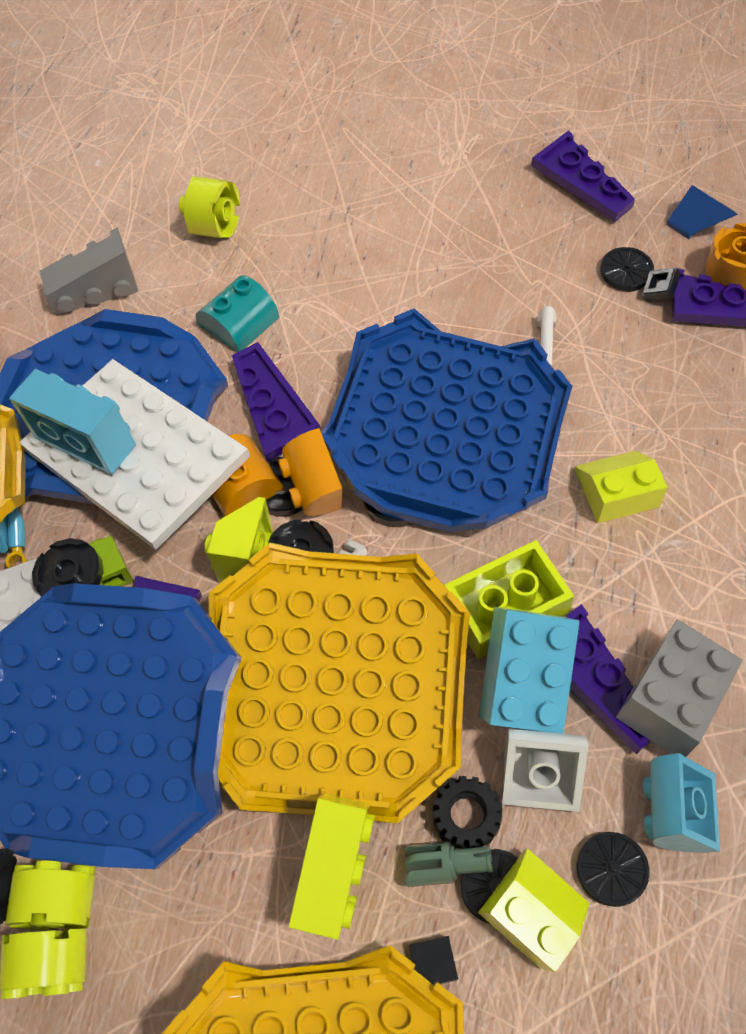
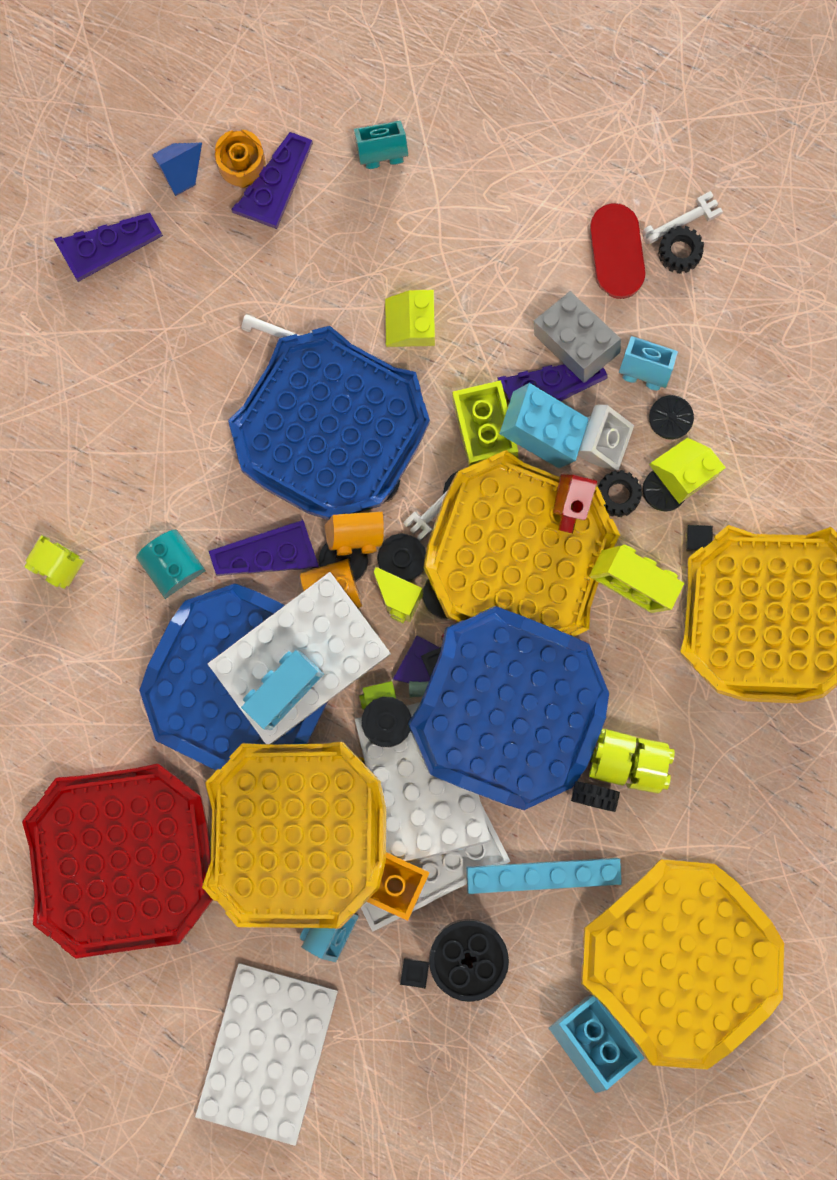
camera: 75 degrees left, 20 degrees up
(89, 277) = (99, 677): light grey wedge -> none
(440, 727) = (575, 491): none -> torso
(442, 863) = (647, 511): sand green arm -> none
(626, 268) = (214, 244): black wheel -> none
(661, 284) = (243, 225): black tile -> none

